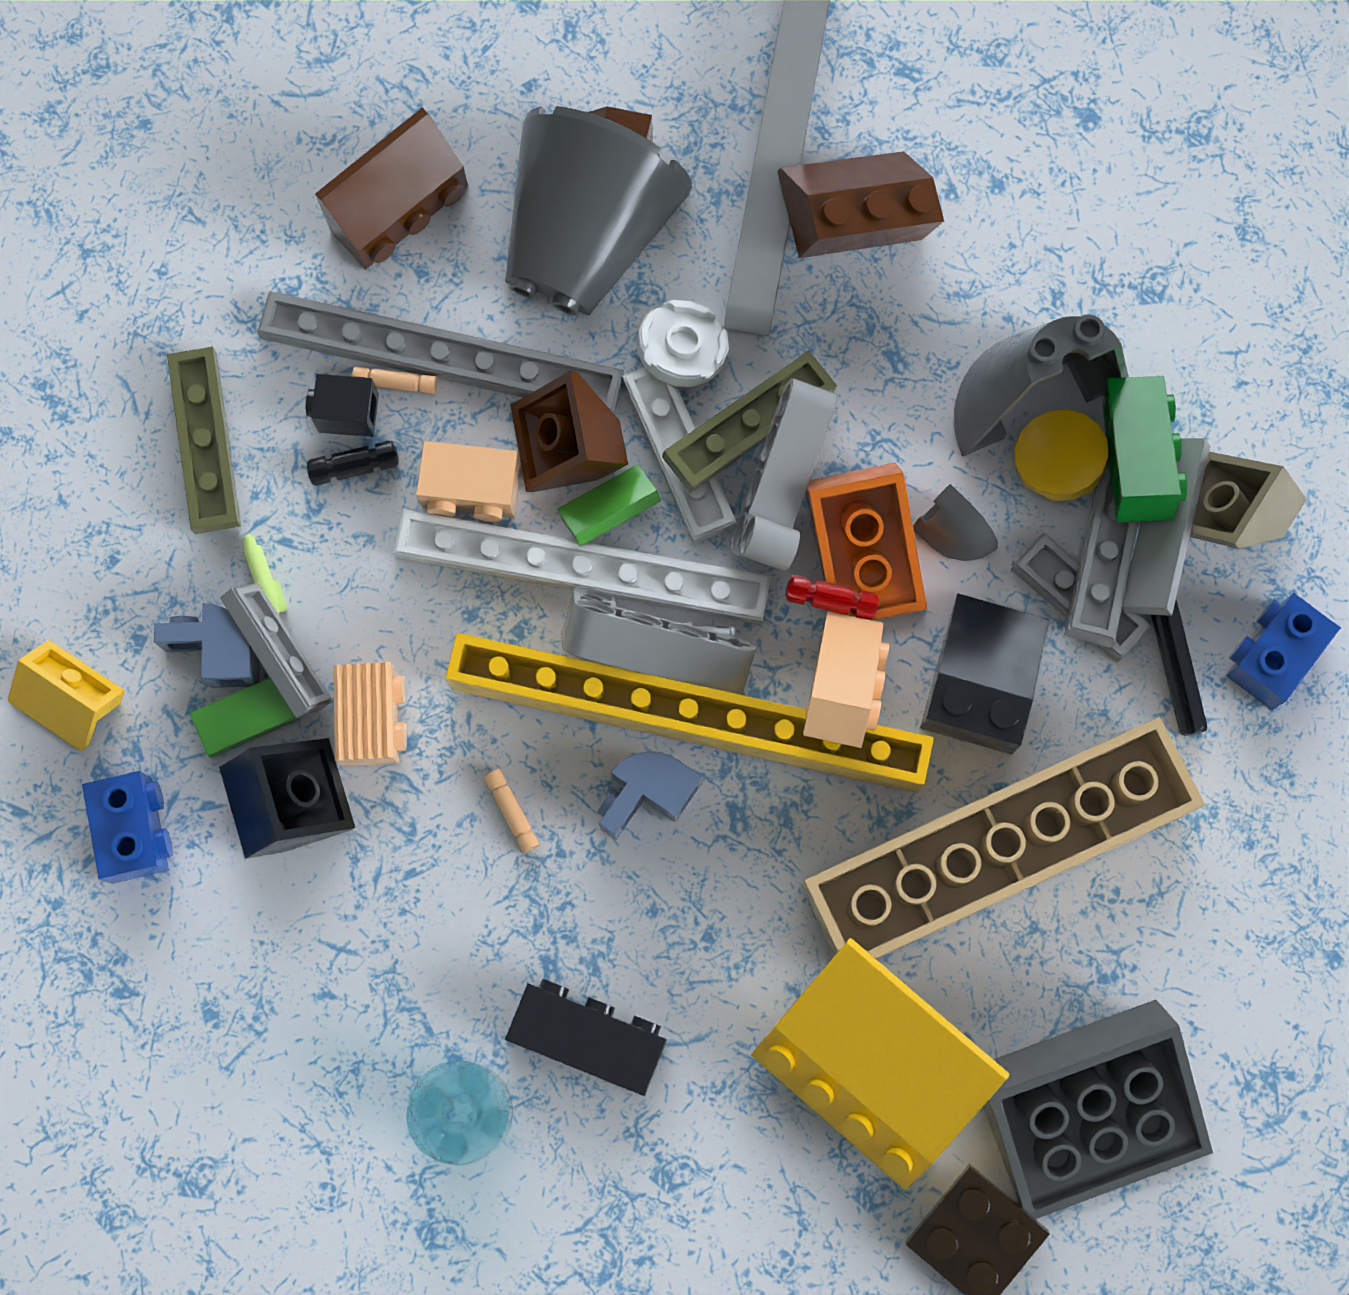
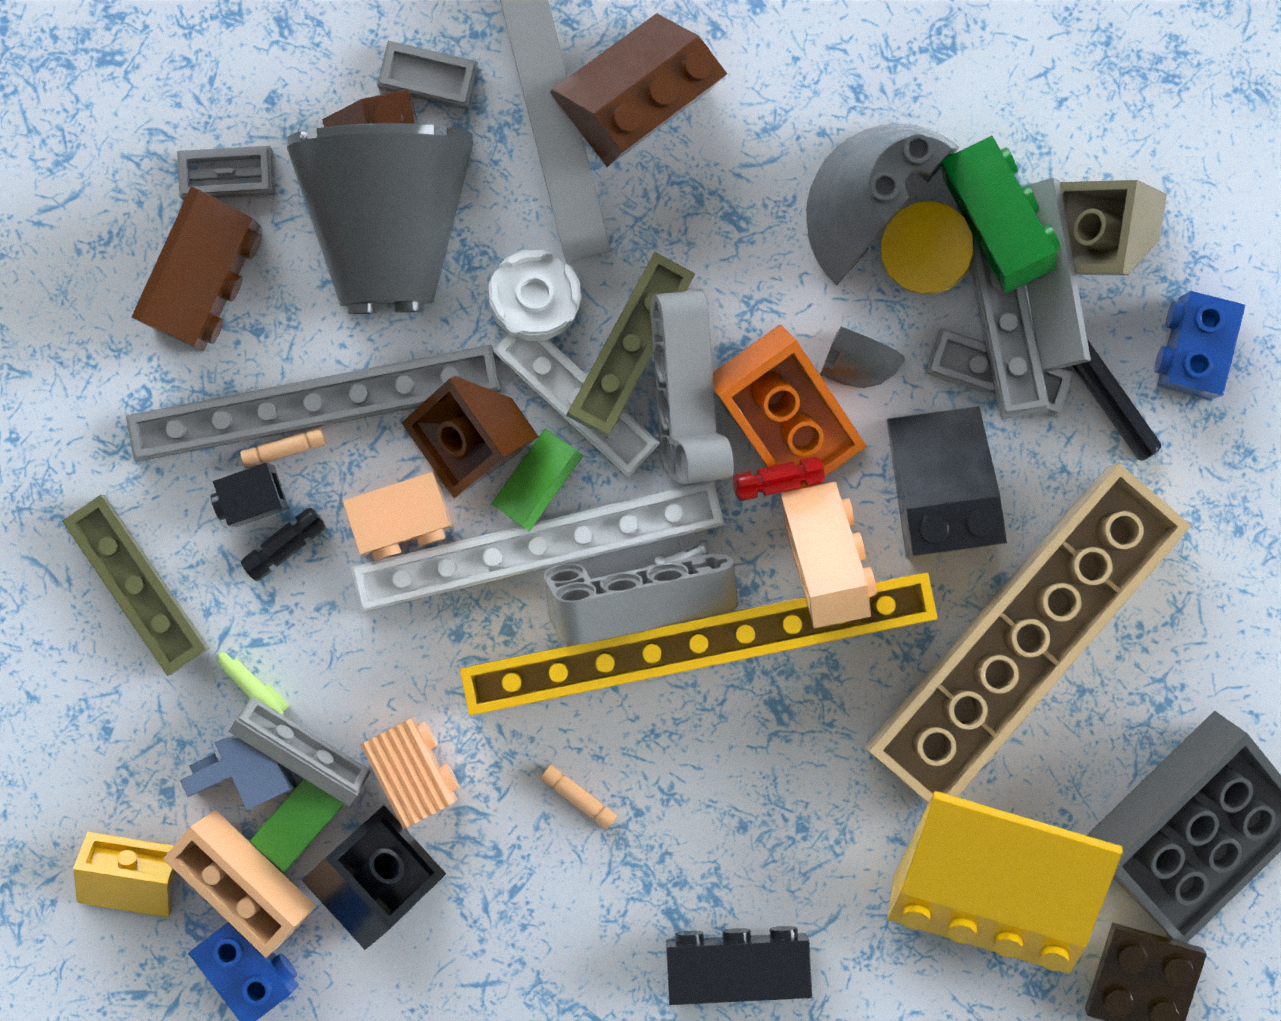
camera: 25 degrees left, 10 degrees up
(161, 743) = (239, 882): none -> light nougat brick
(461, 145) = (226, 154): none -> light grey tile
(648, 778) = (696, 714): sand blue brick -> none
(679, 121) = (428, 74): none -> light grey tile

